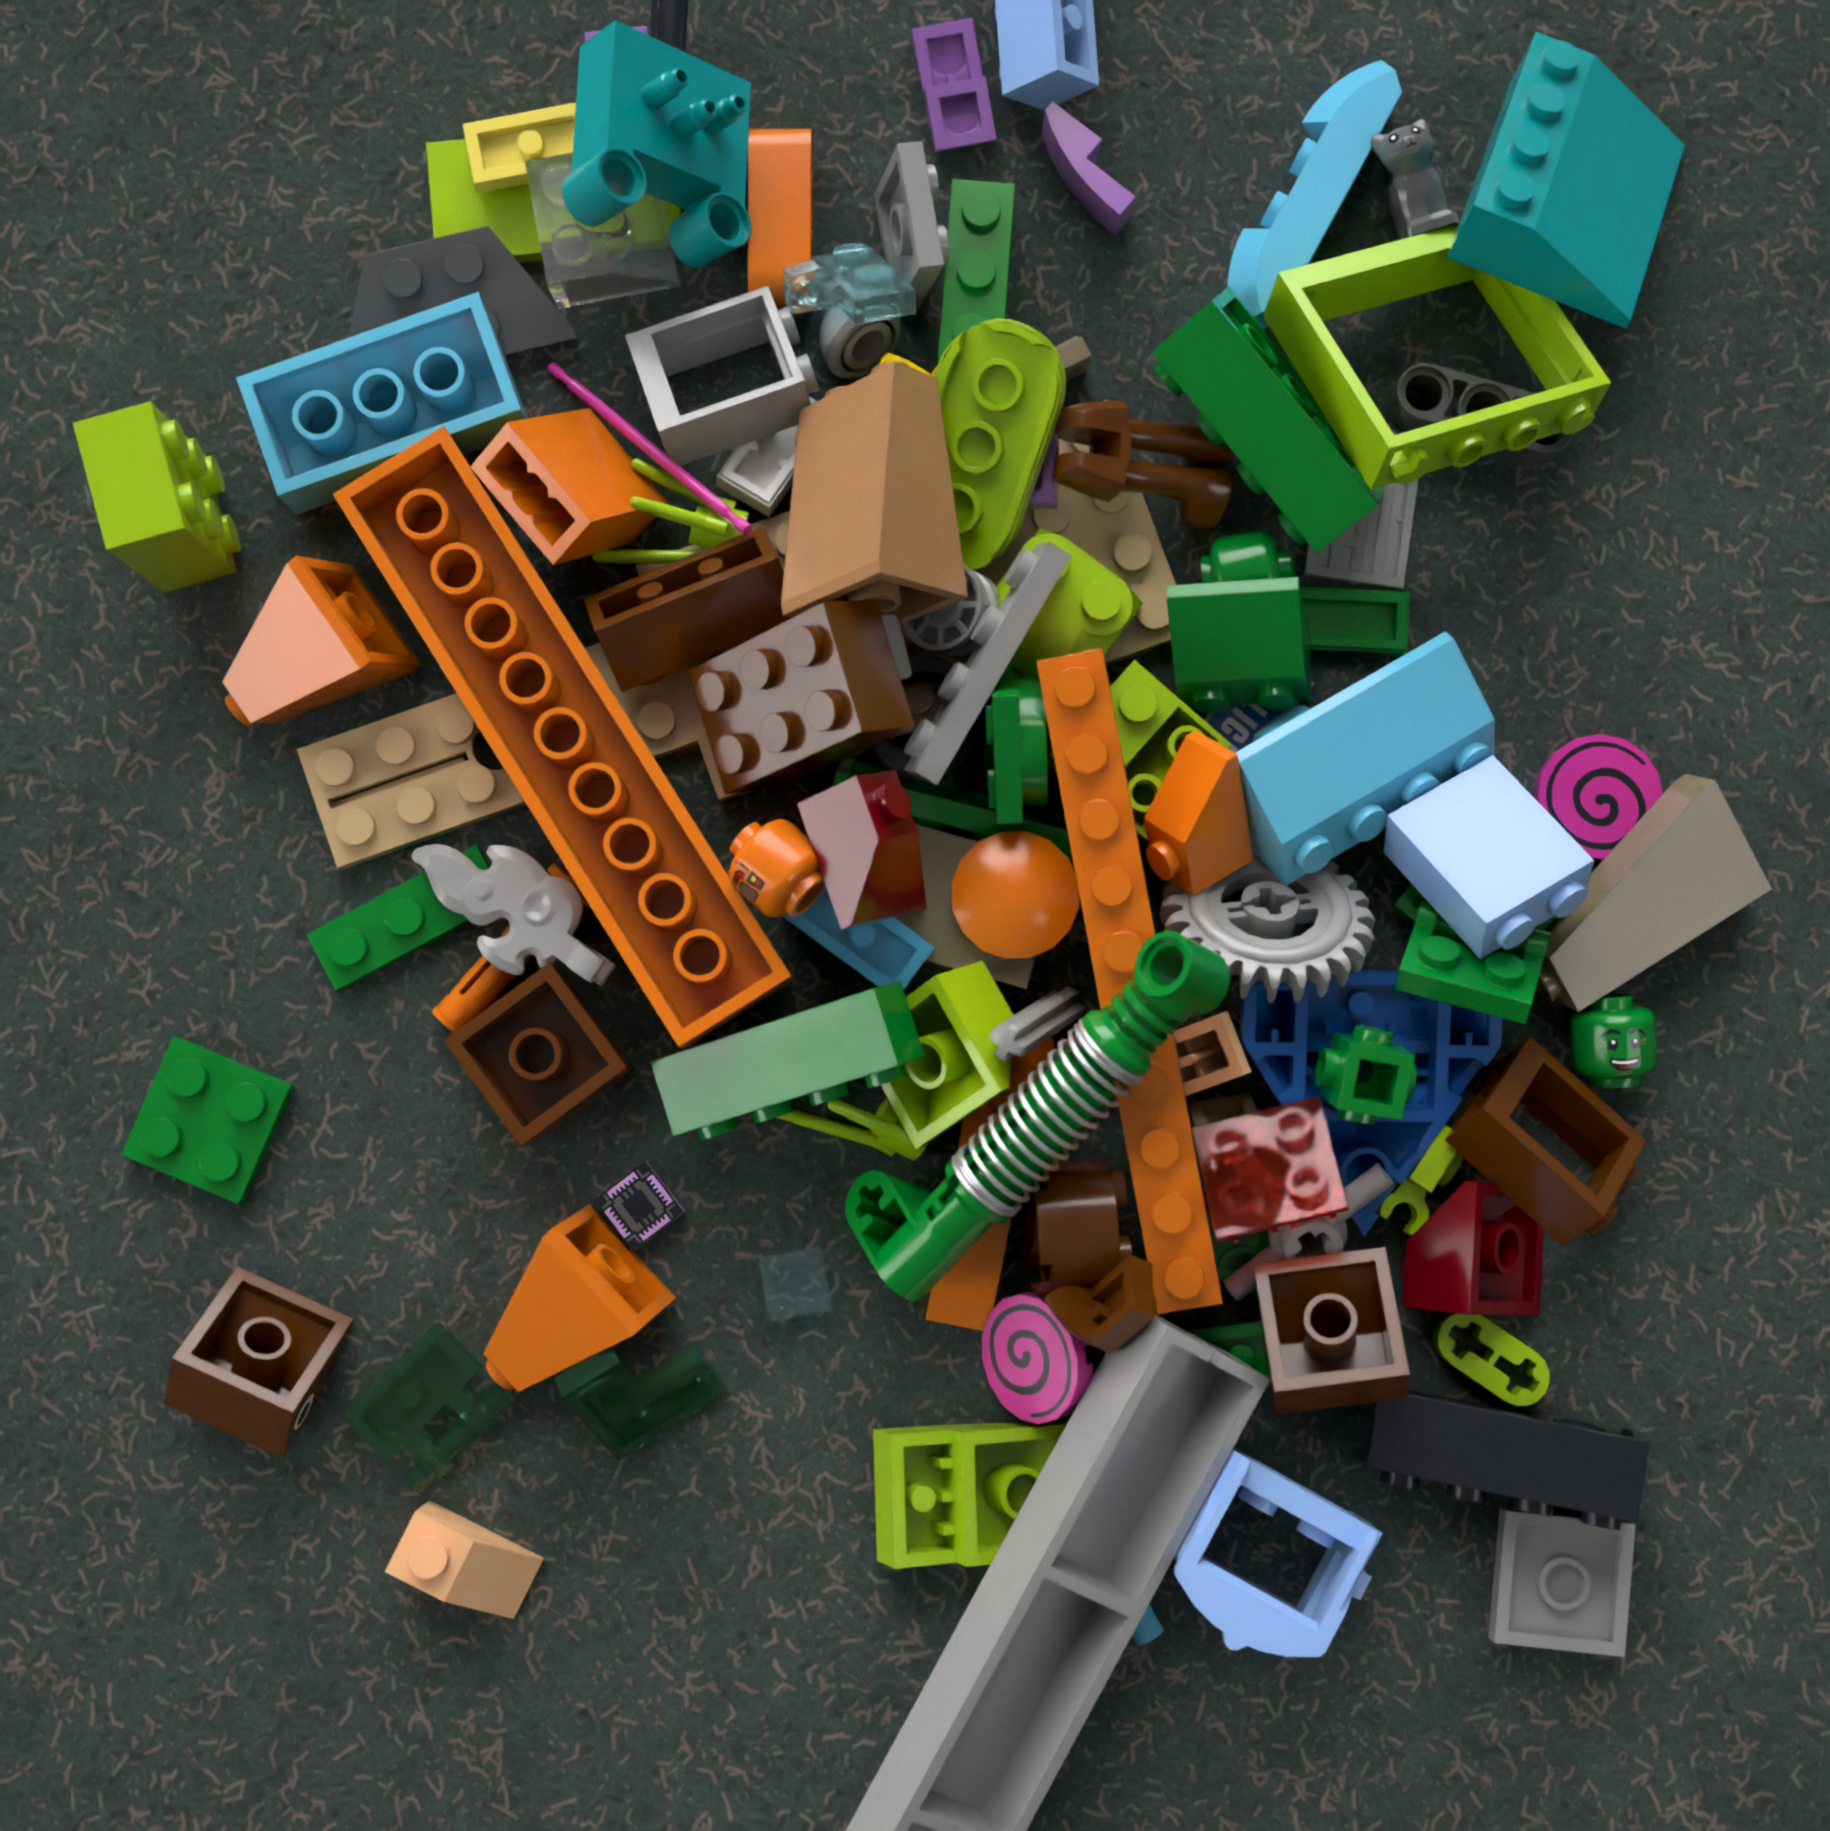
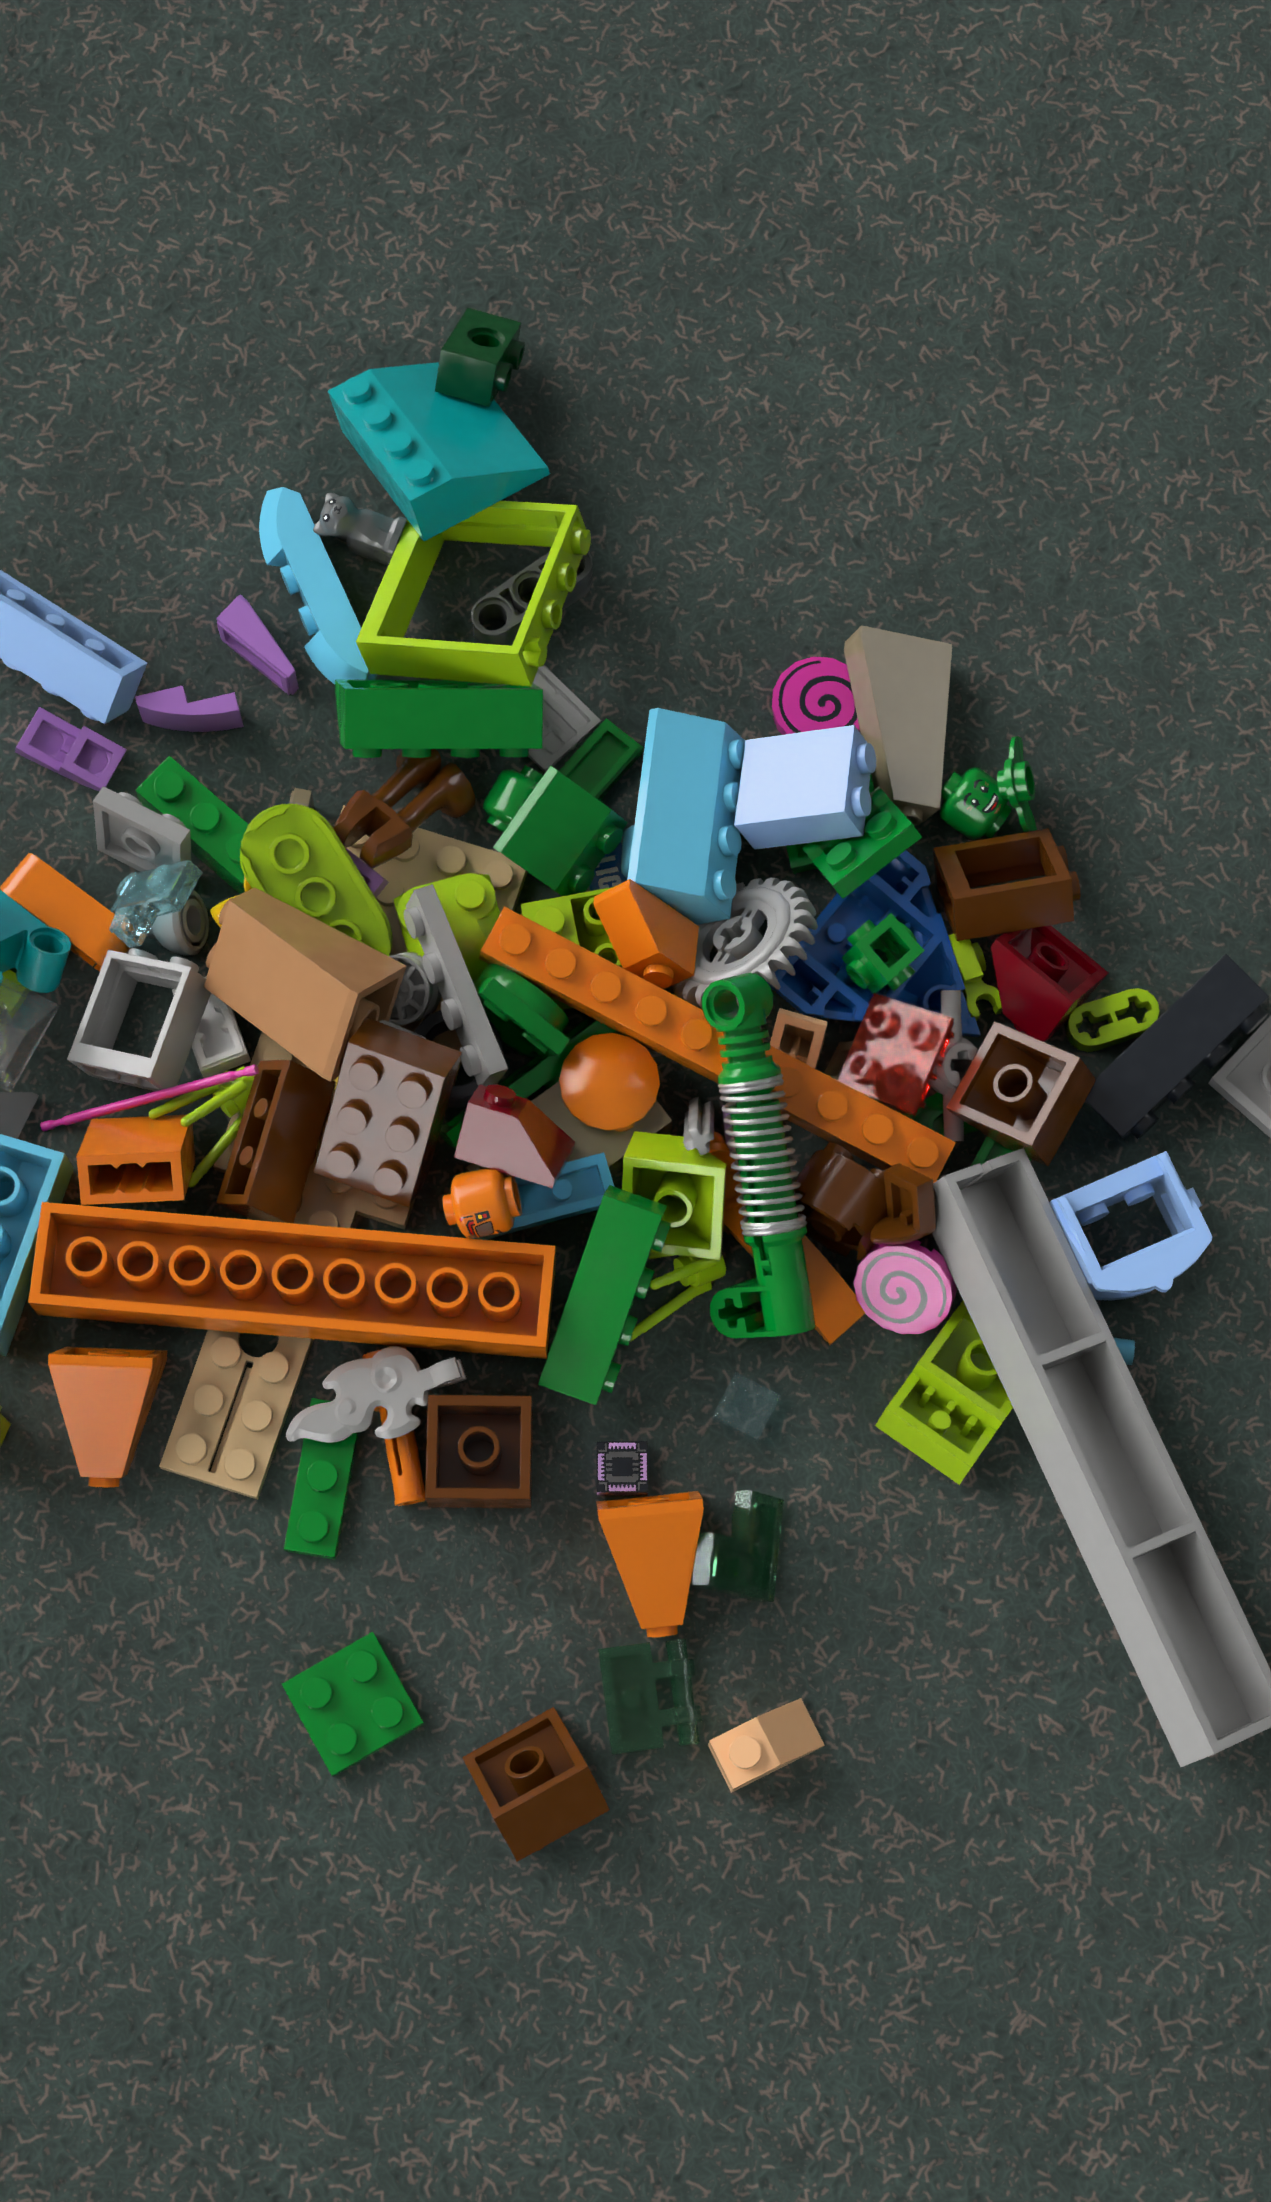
camera: 50 degrees left, 10 degrees down
(1210, 162) = (249, 637): none -> medium lavender slope
(1669, 1075) = (1018, 784): none -> green plate
(1699, 156) = (479, 357): none -> dark green brick

